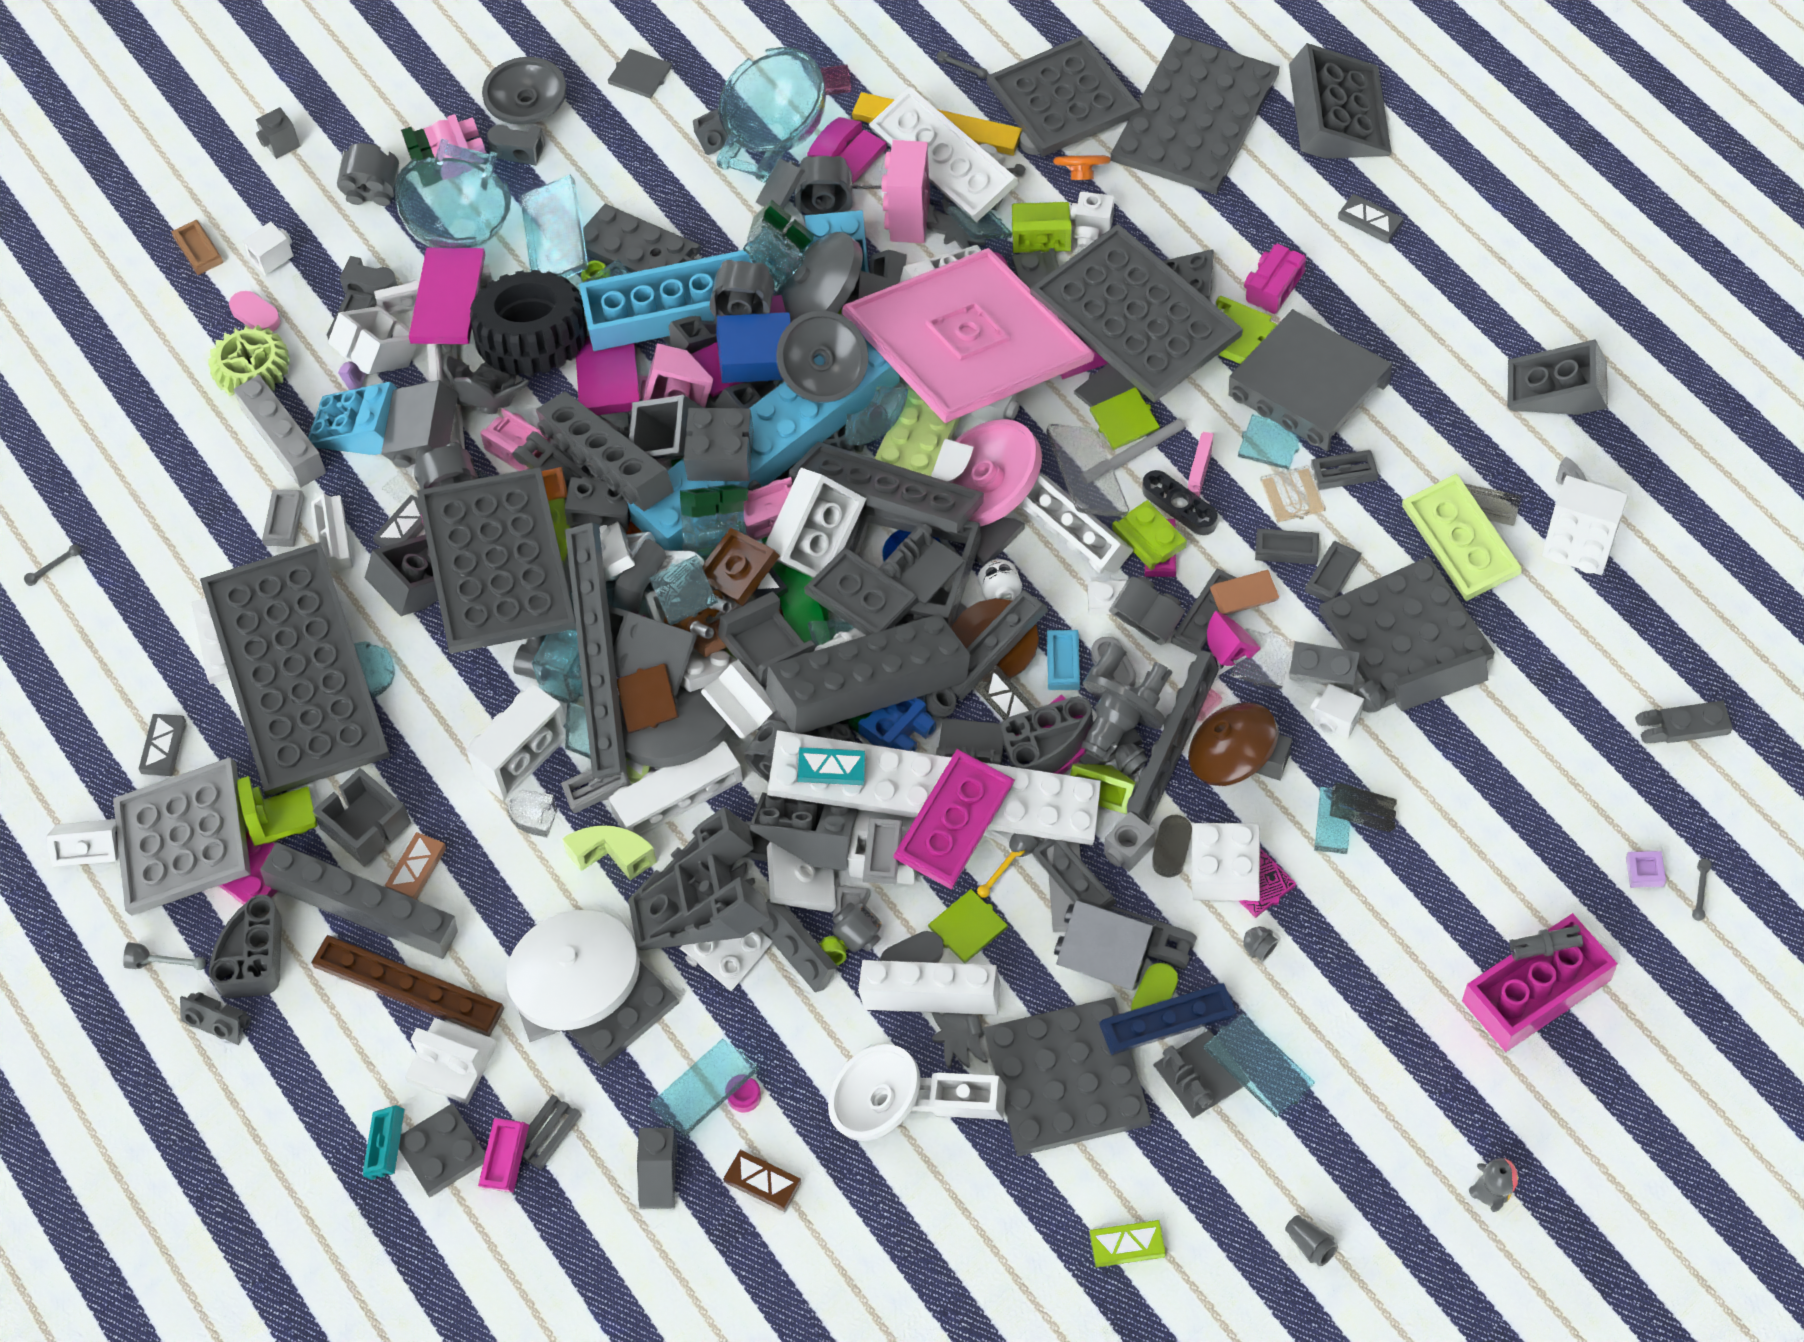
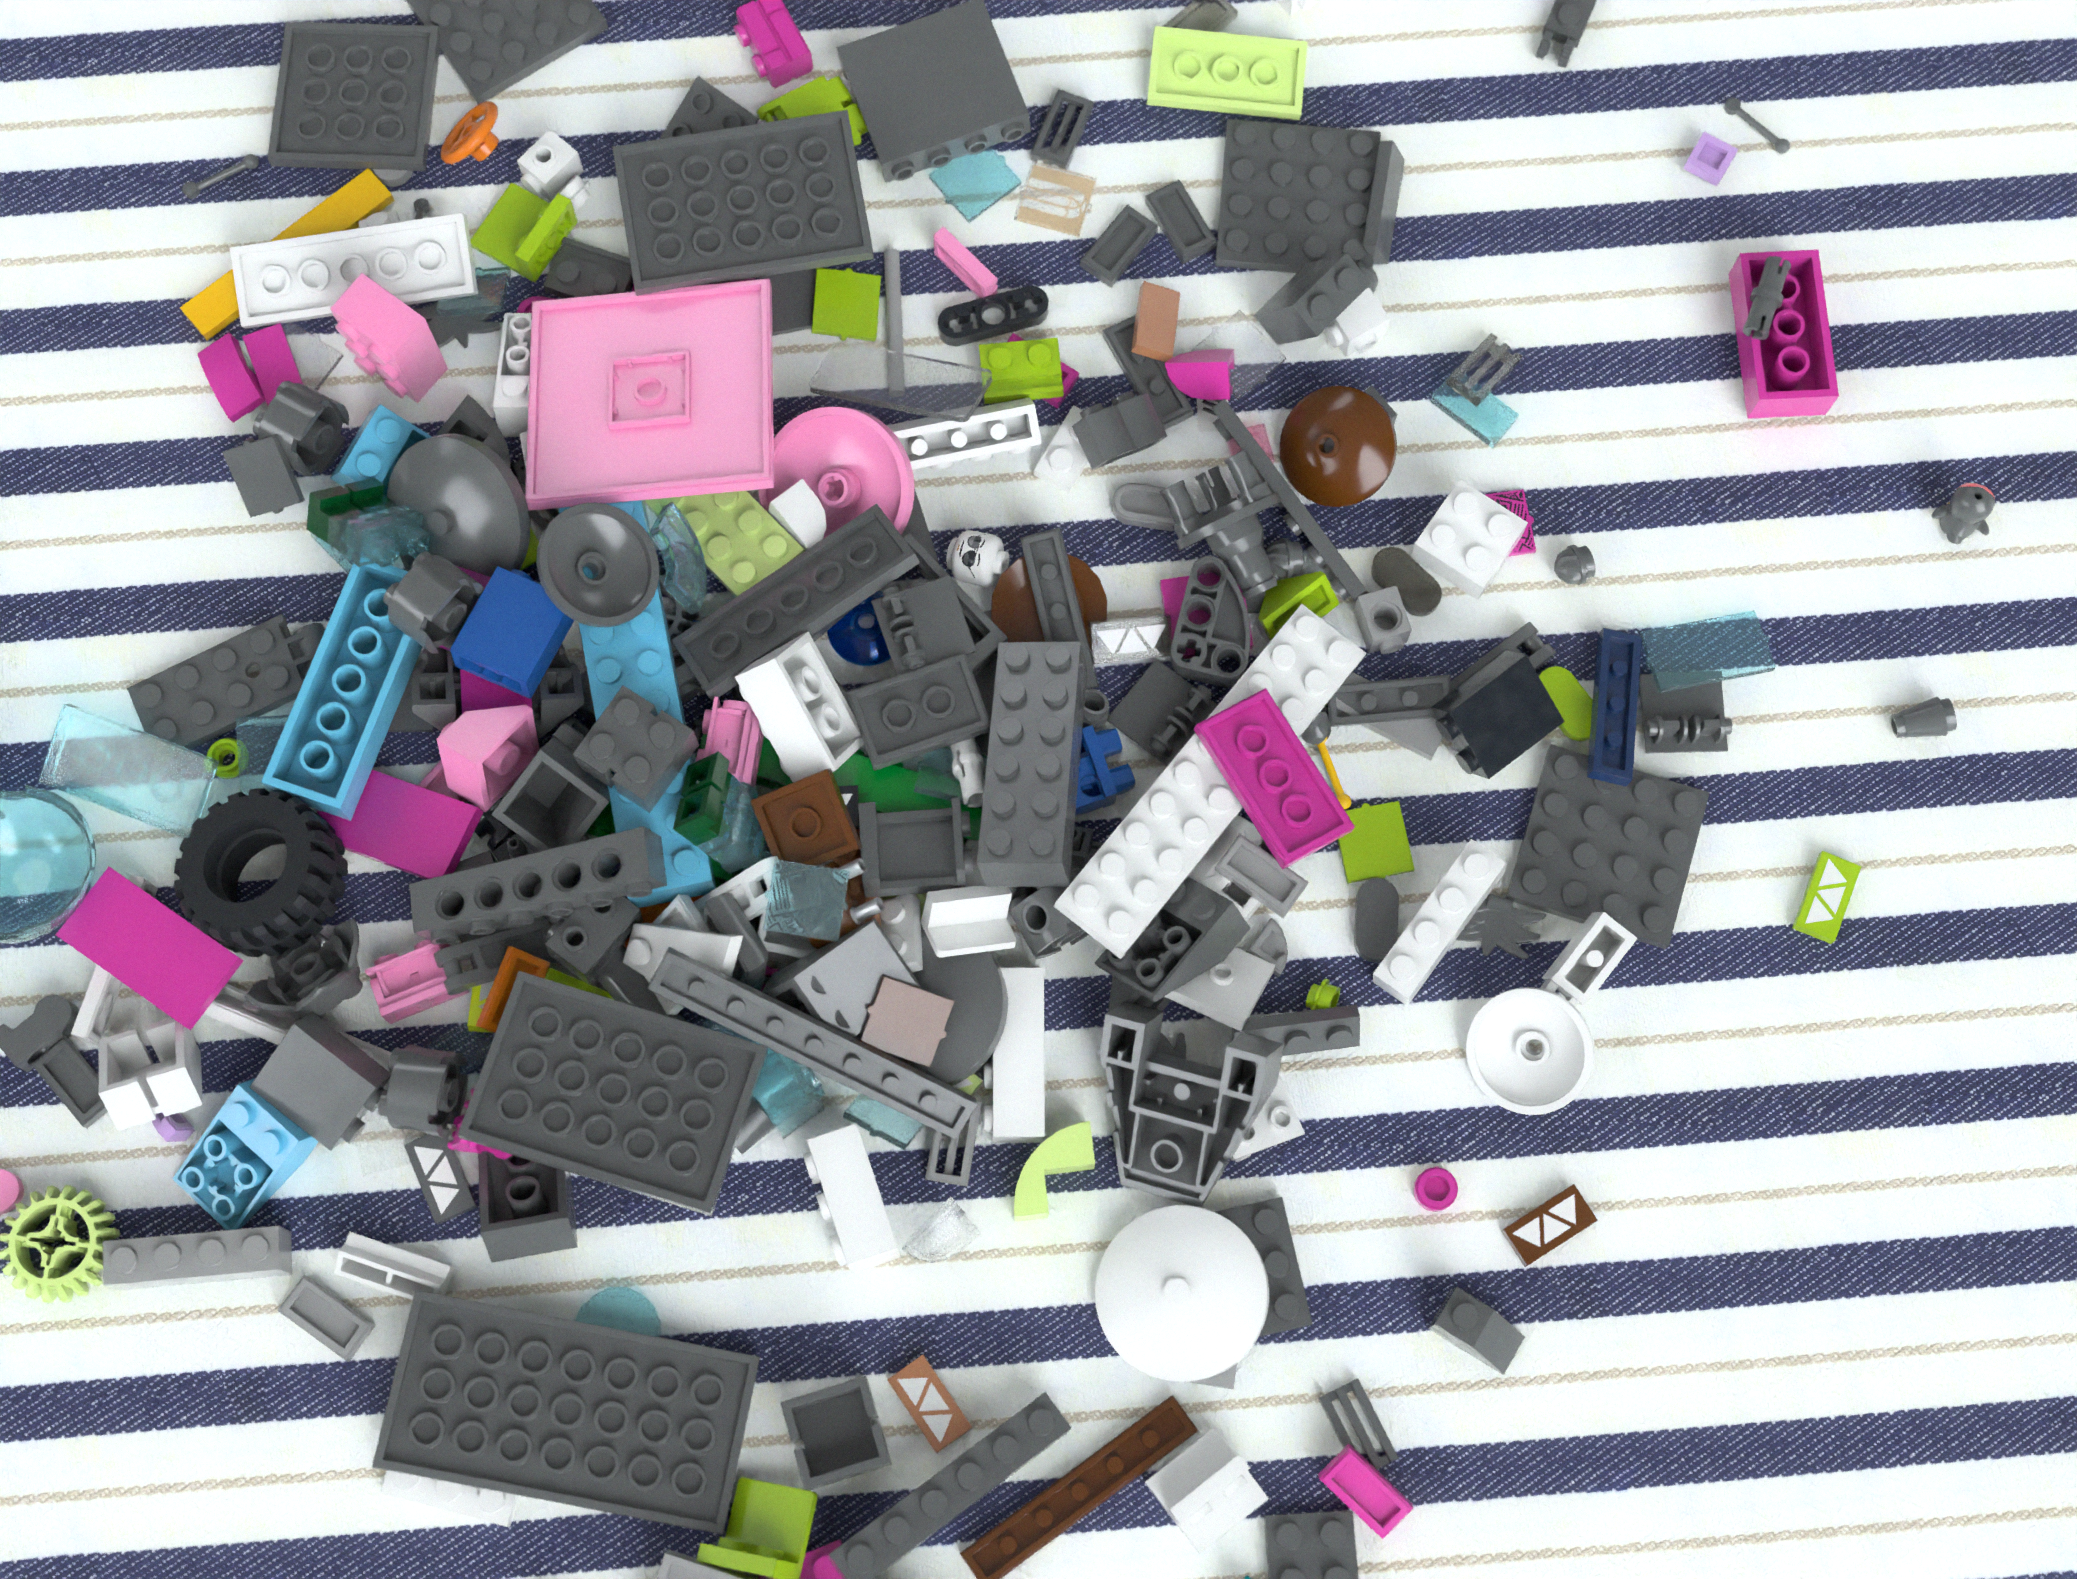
camera: 65 degrees left, 15 degrees up
(703, 1087) = (1406, 1227): clear light blue piece -> none
(710, 131) = (109, 506): dark grey bracket -> none
(770, 108) = (144, 417): clear light blue windscreen -> none
(831, 766) = (1142, 869): teal tile -> none
(836, 79) = (135, 324): clear pink tile -> none
(857, 927) = (1315, 957): dark grey head -> none
(1063, 660) = (1111, 553): medium azure tile -> none

